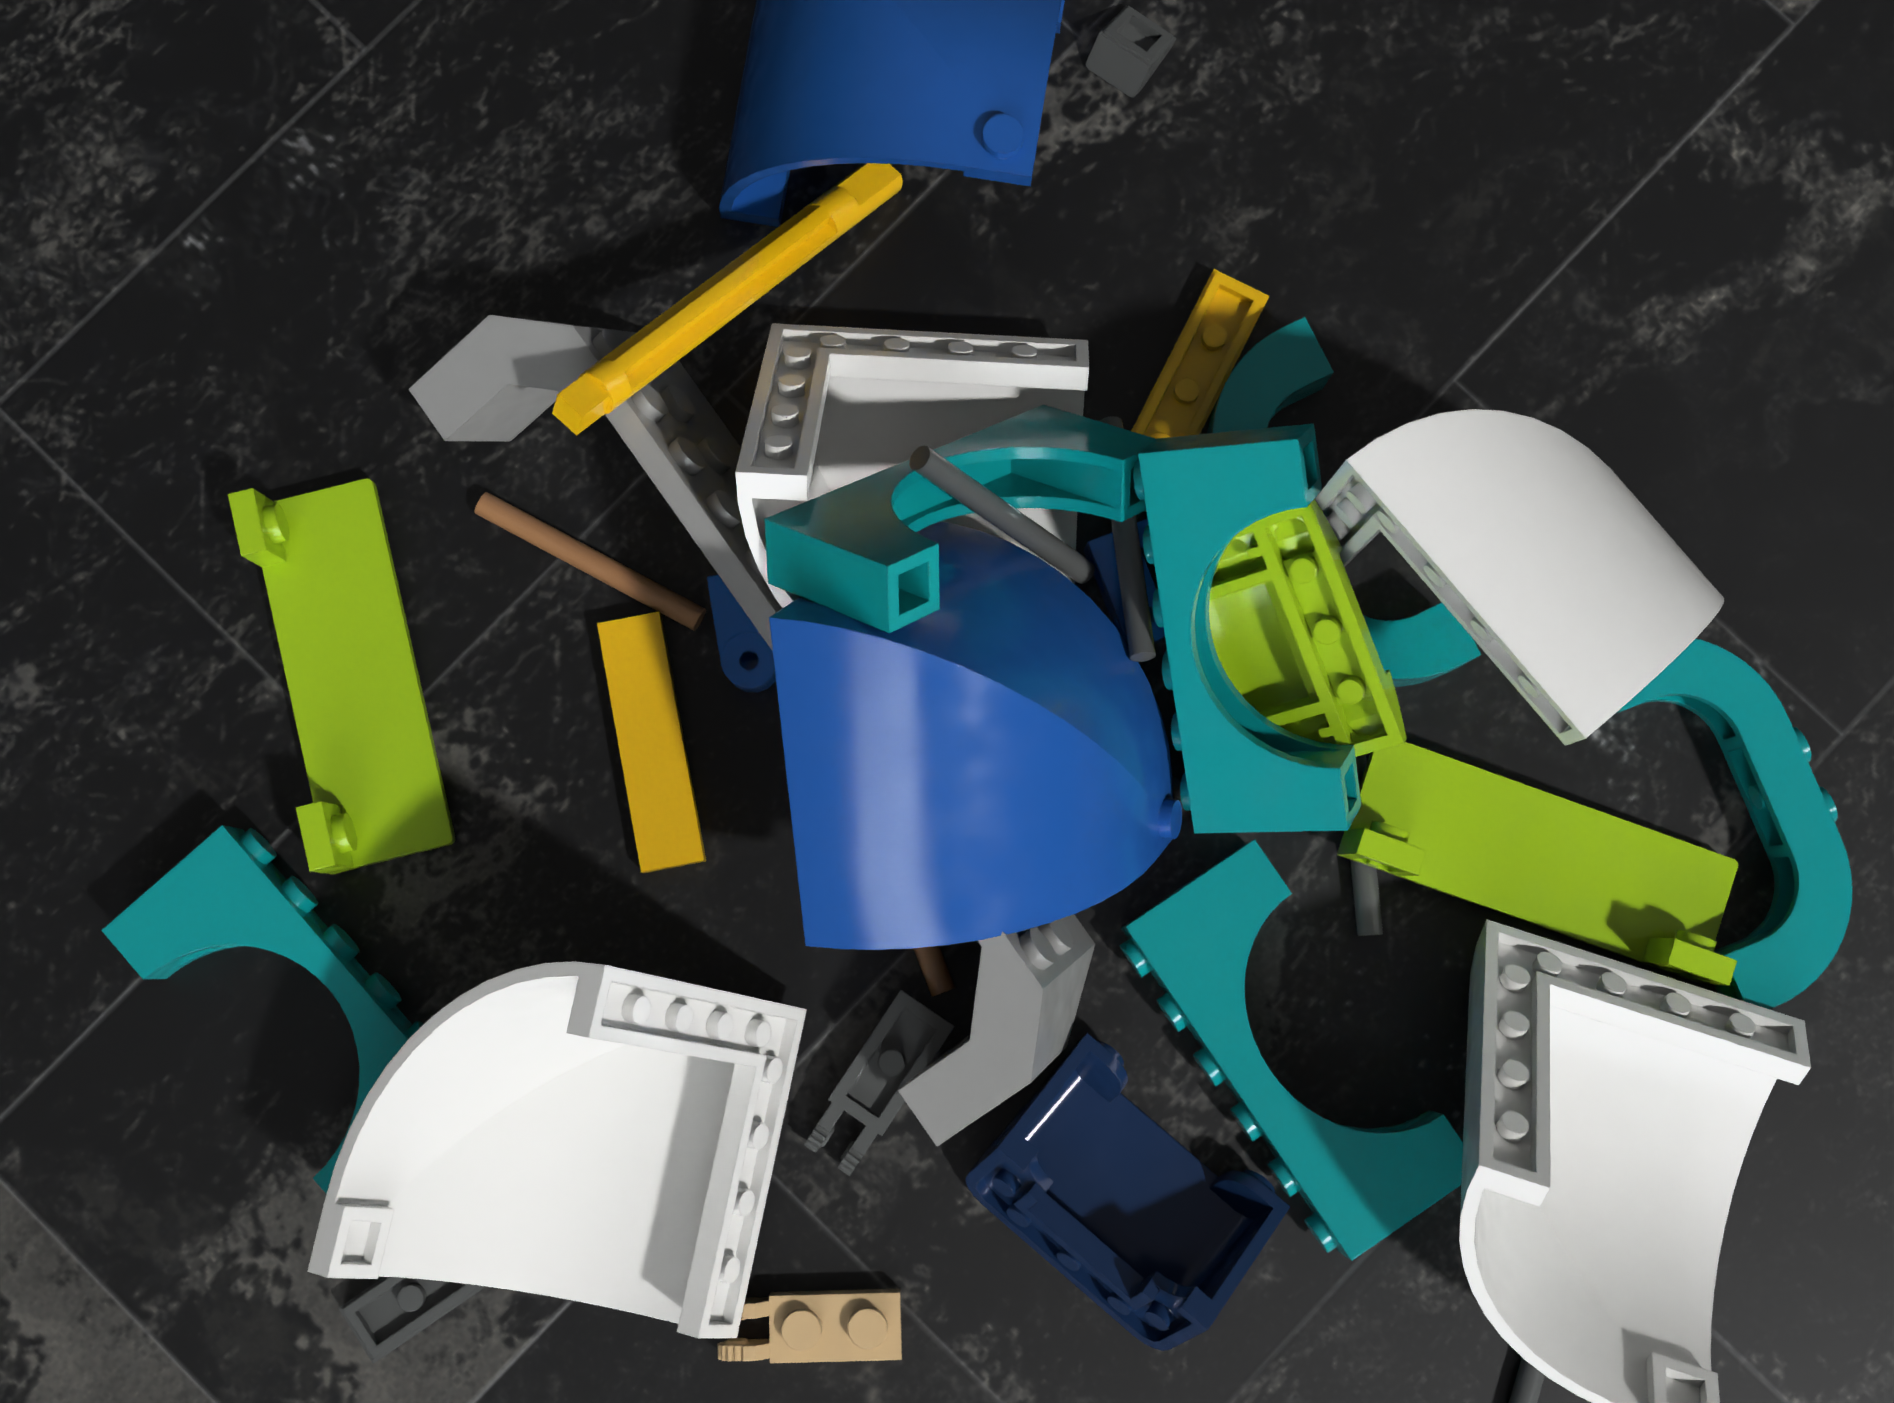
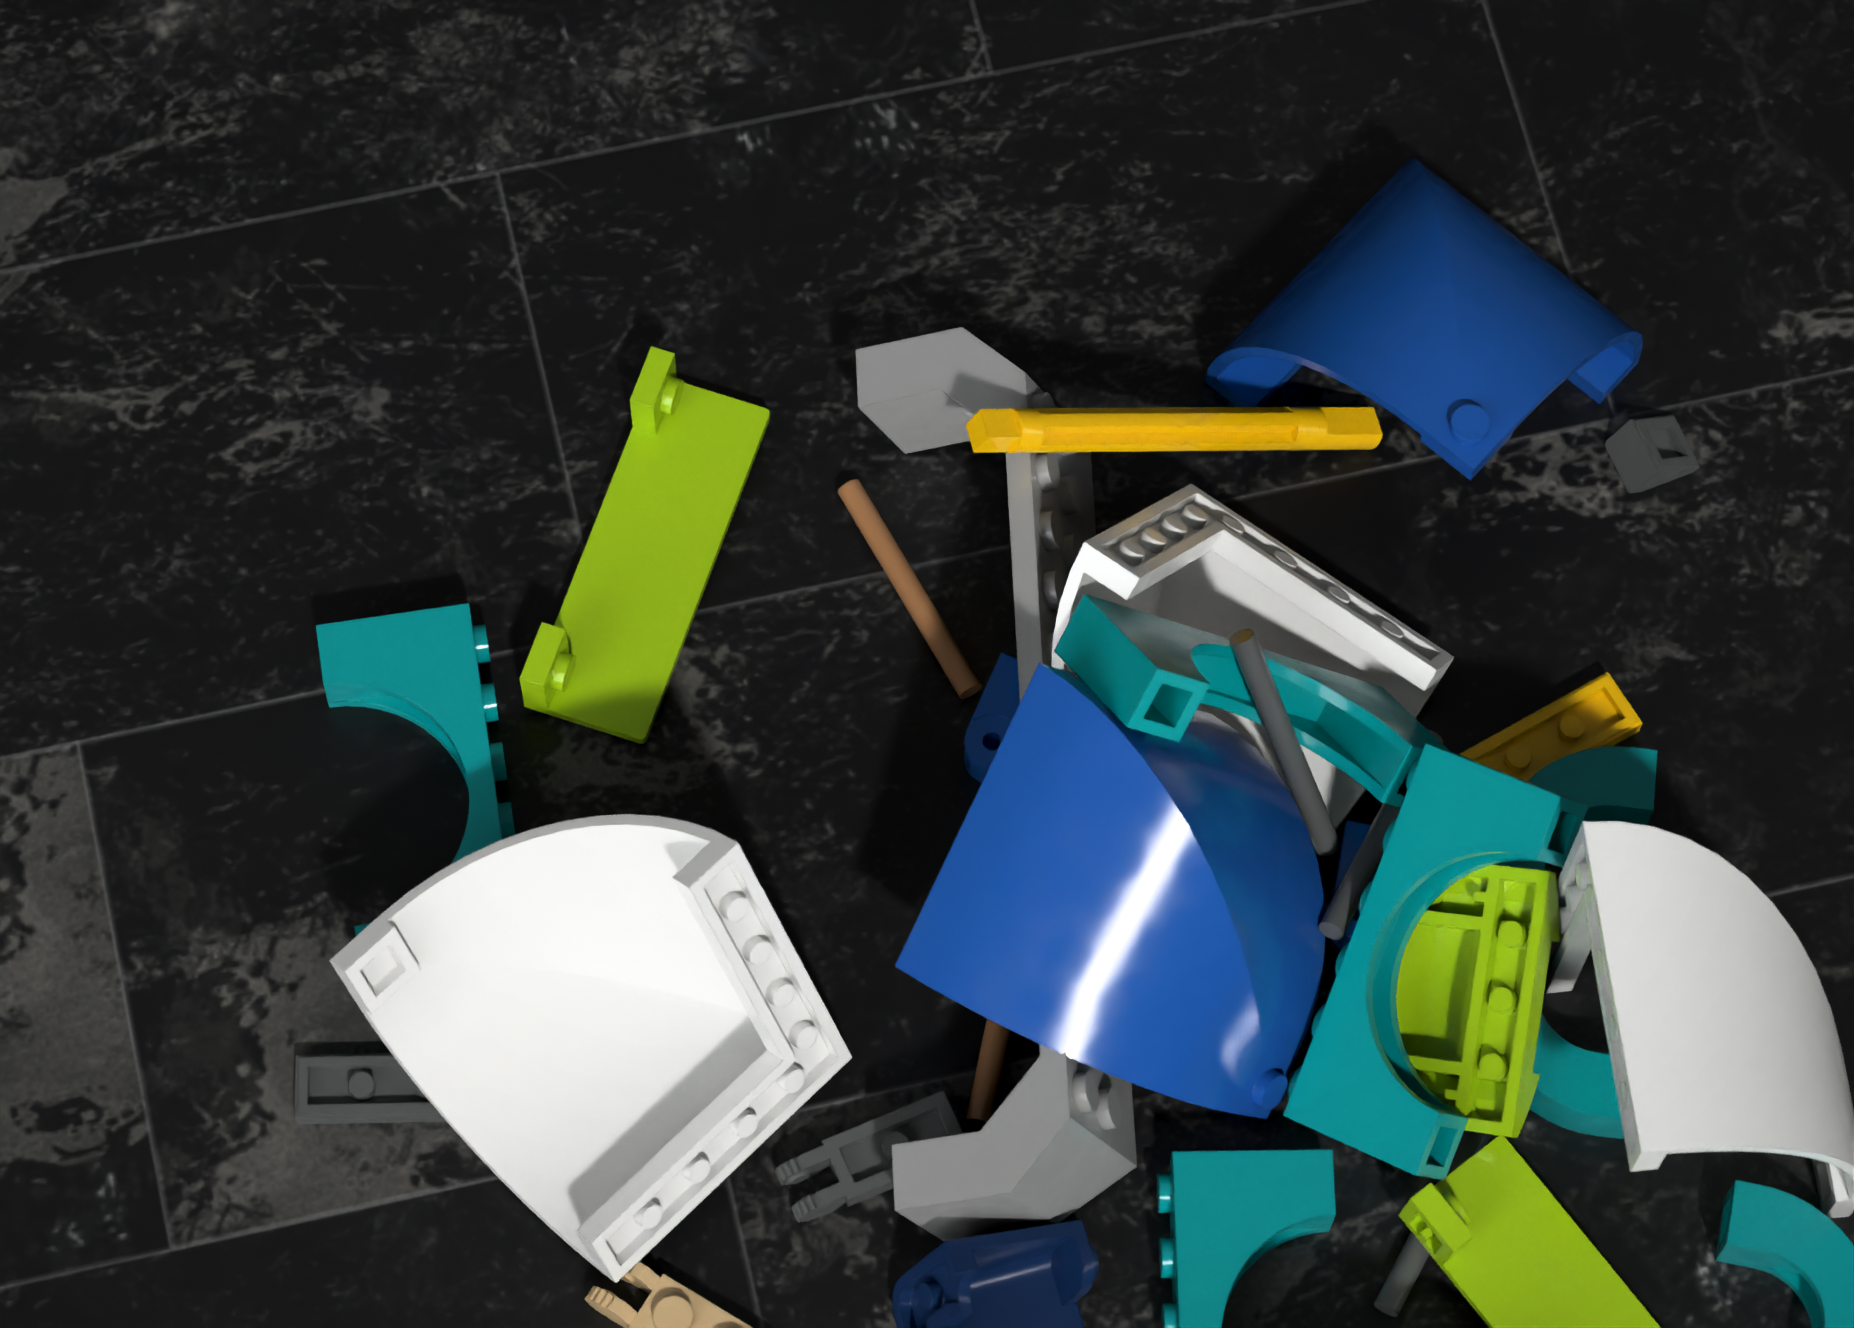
camera: 30 degrees right, 15 degrees down
(651, 742) = (863, 765): yellow tile -> none

